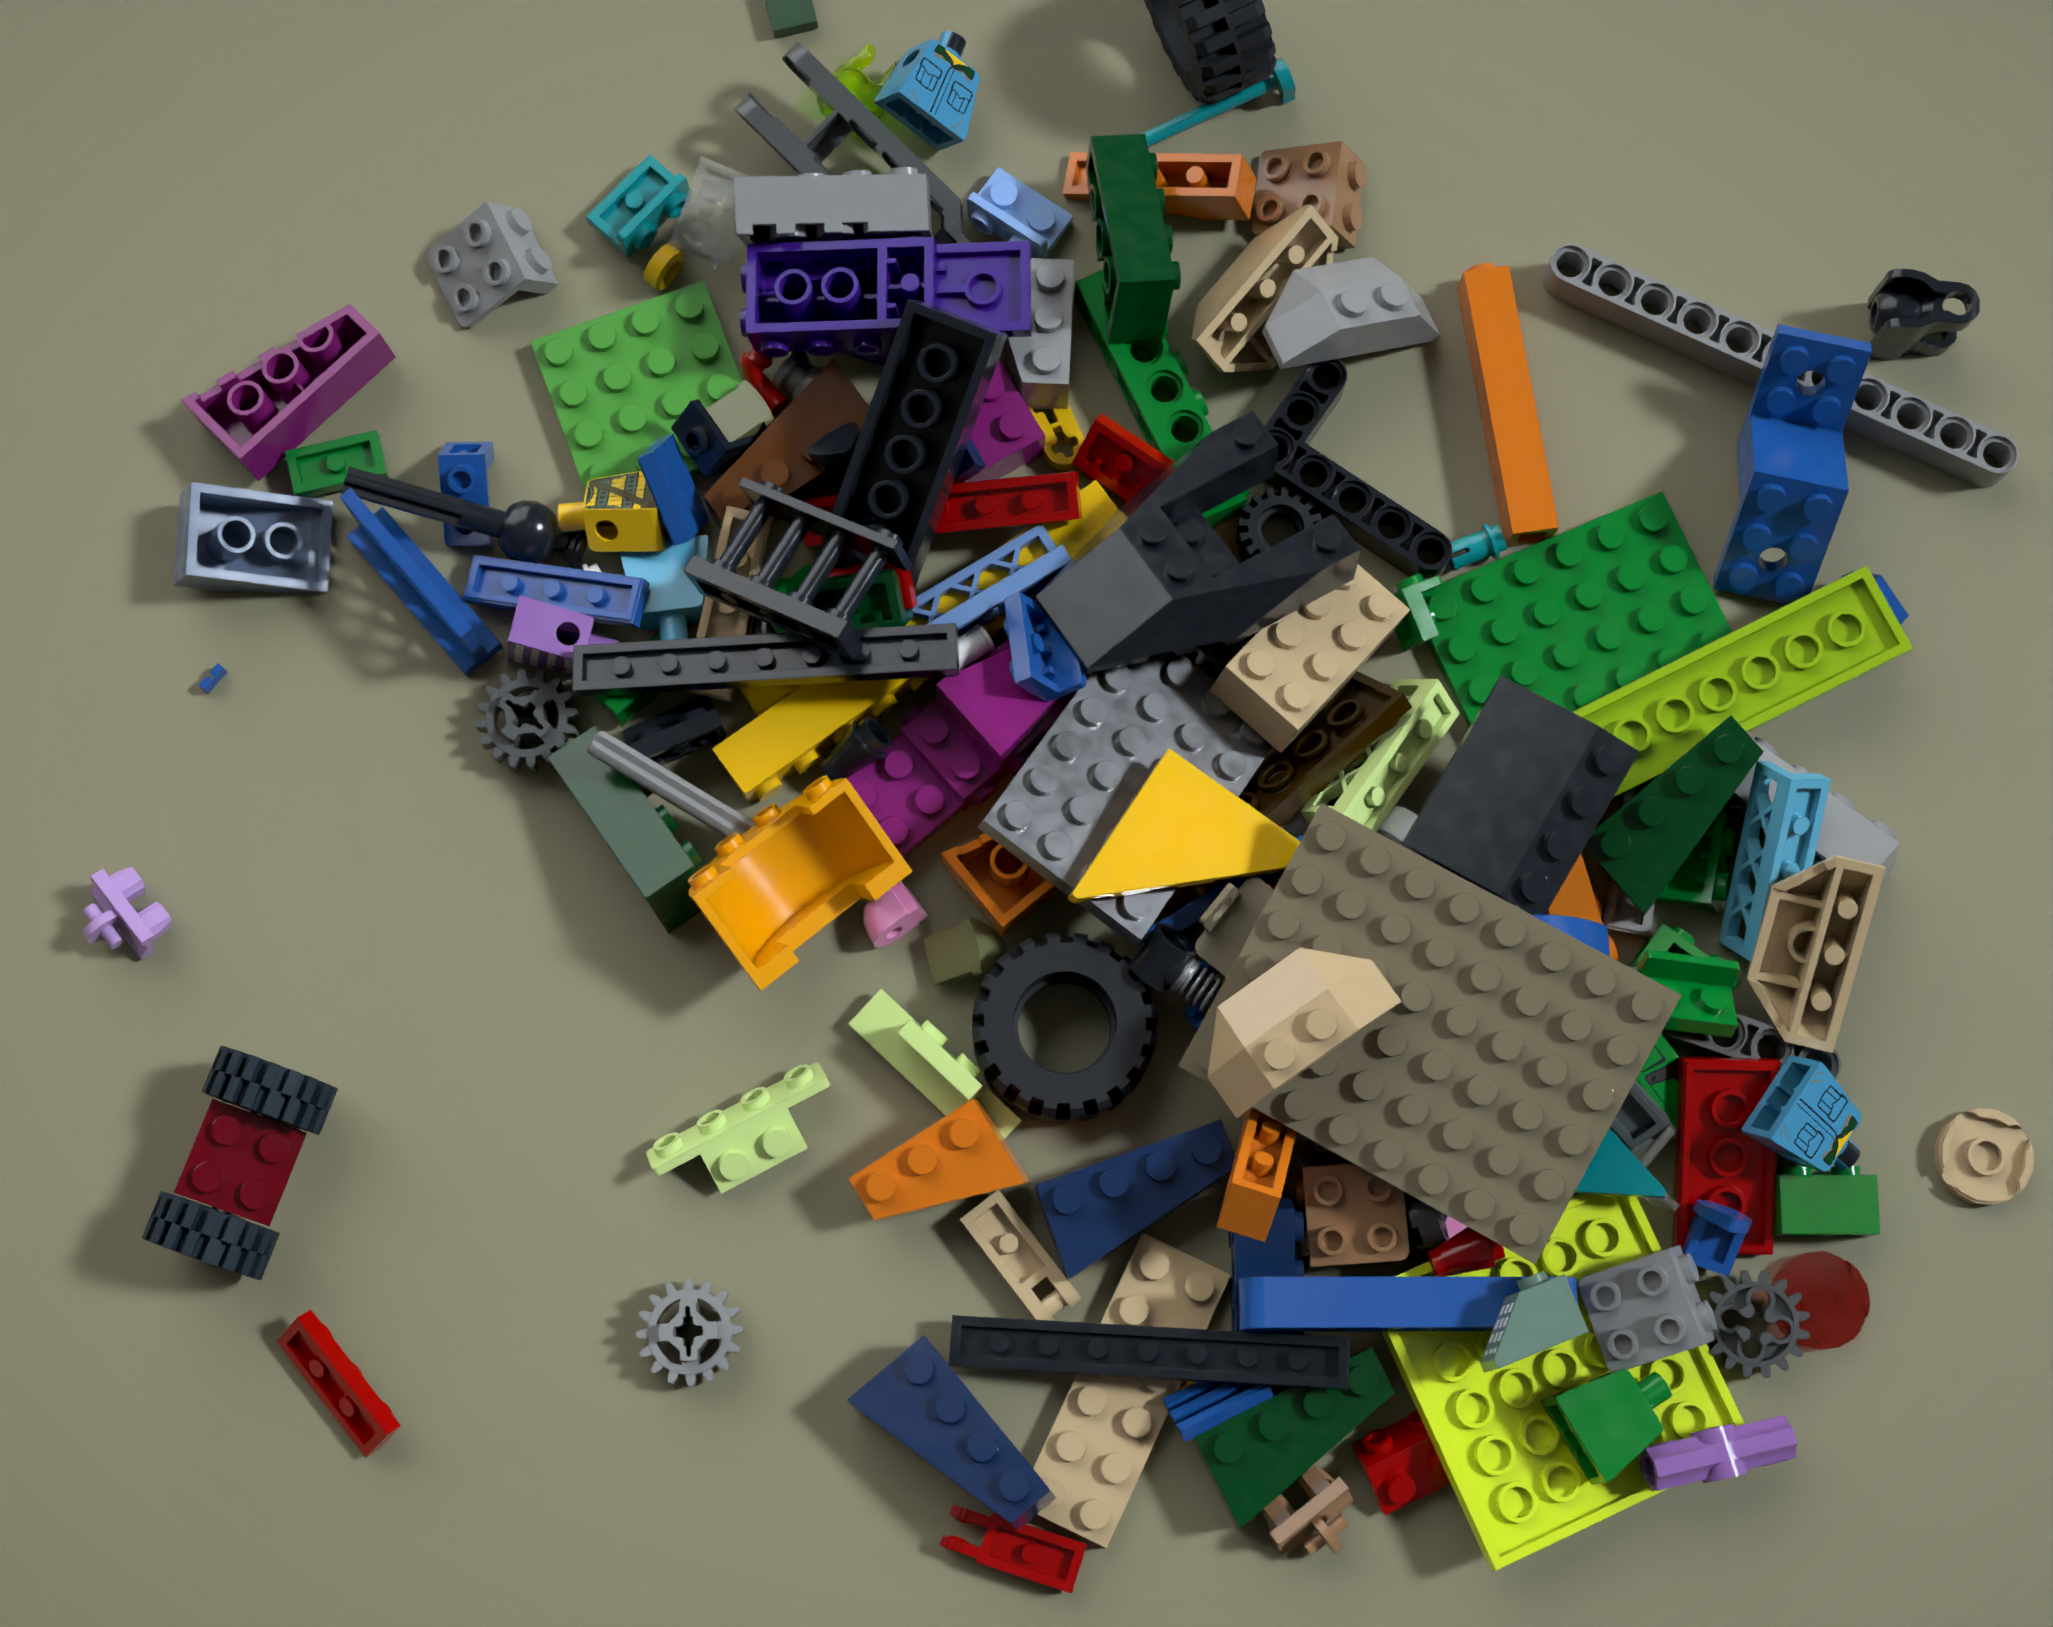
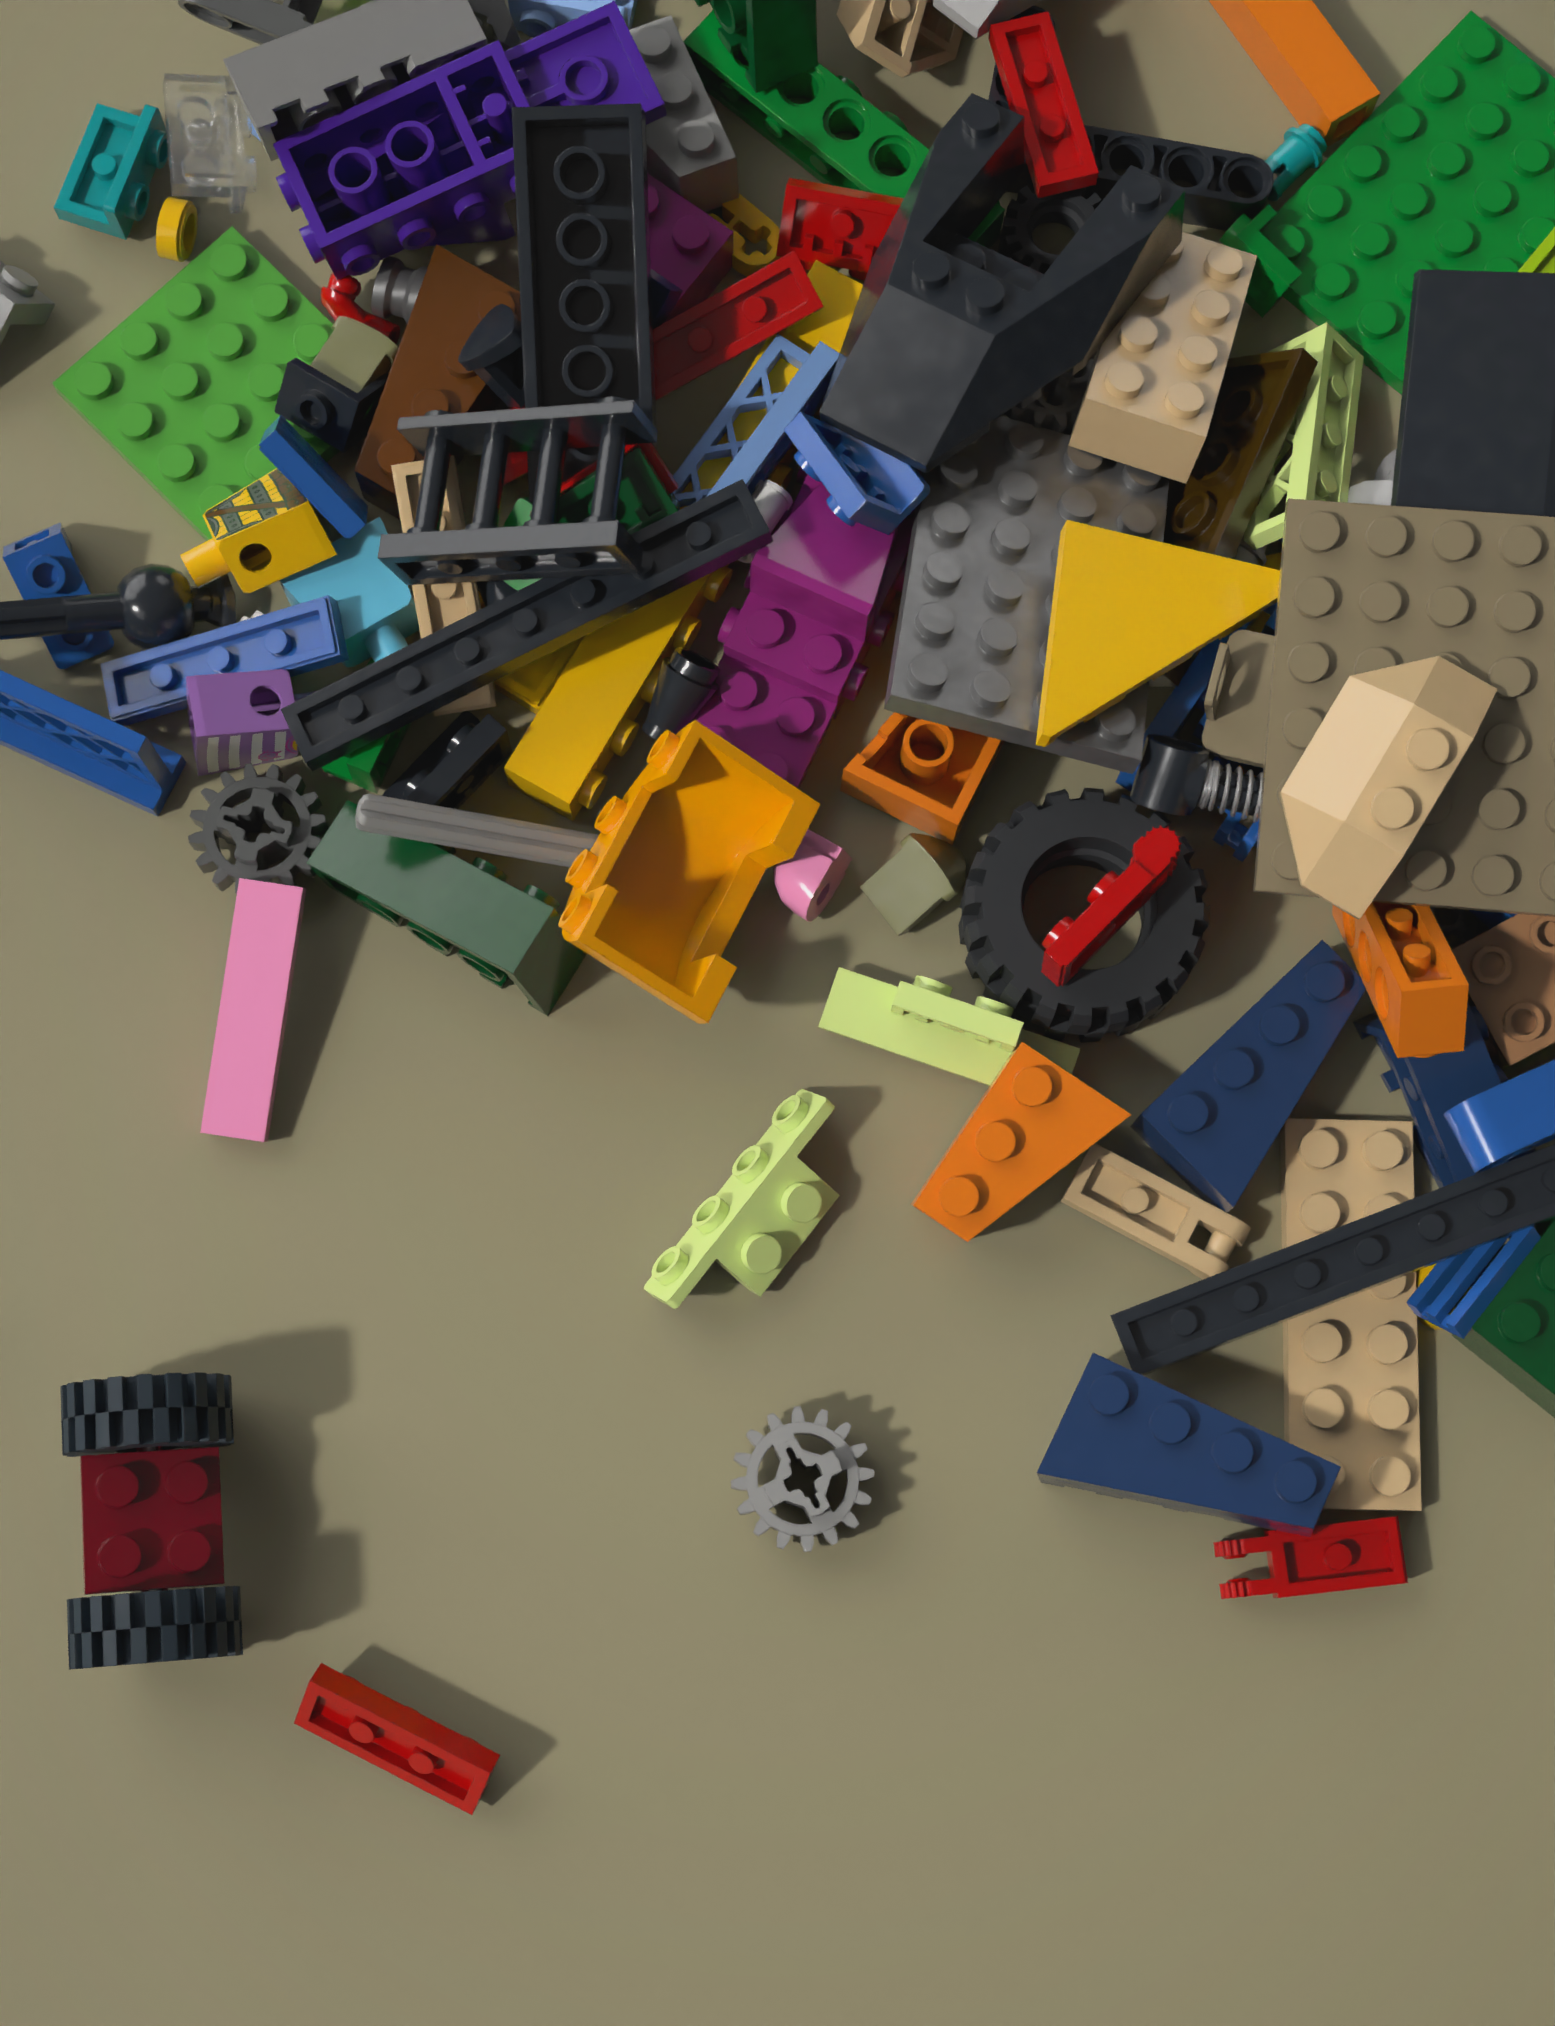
camera: 25 degrees left, 0 degrees up
(467, 842) = (253, 1010): none -> bright pink tile
(1075, 1032) = (1112, 905): none -> red hinge
(1306, 436) = (1042, 93): none -> red plate

